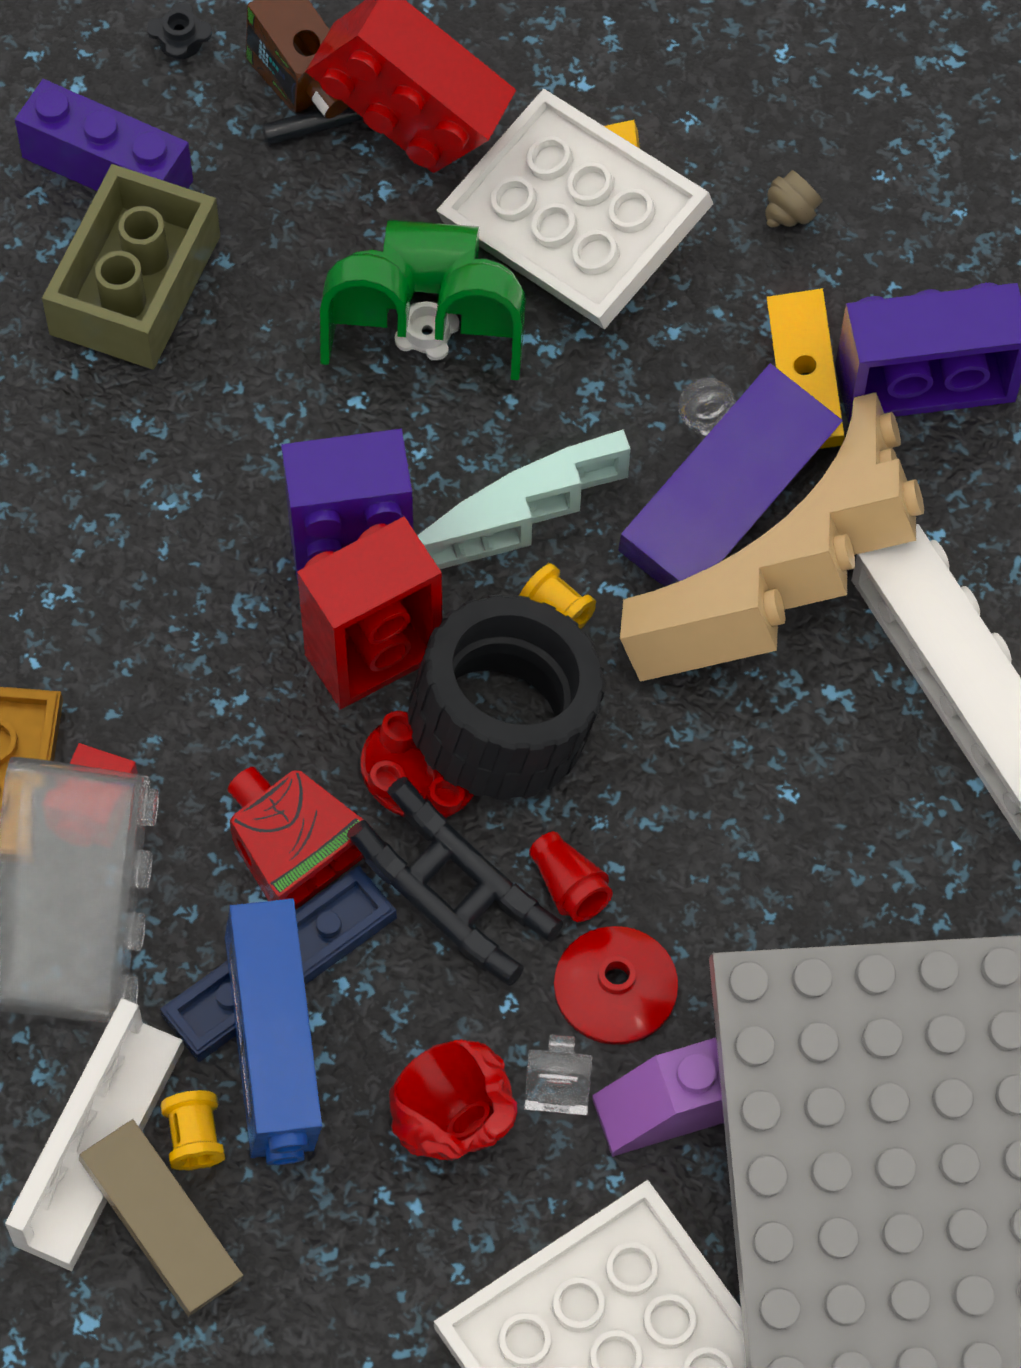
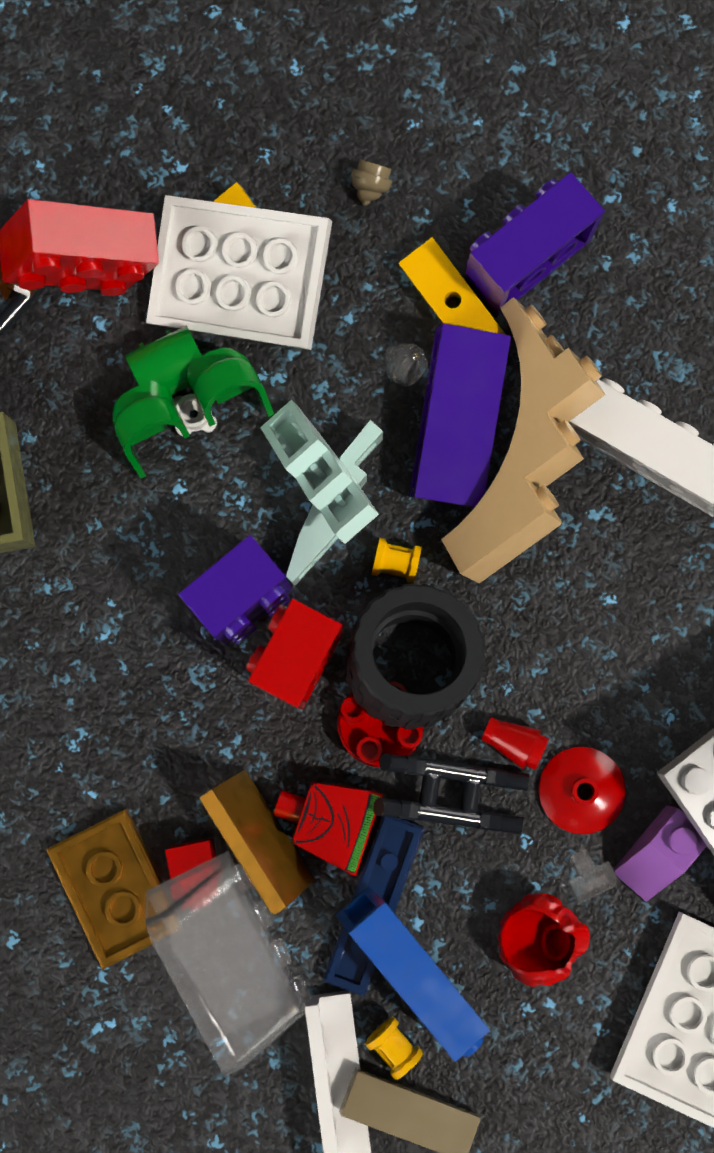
camera: 30 degrees left, 20 degrees up
(191, 793) = (258, 841): none -> pearl gold tile
(526, 444) = (319, 472): none -> light aqua slope

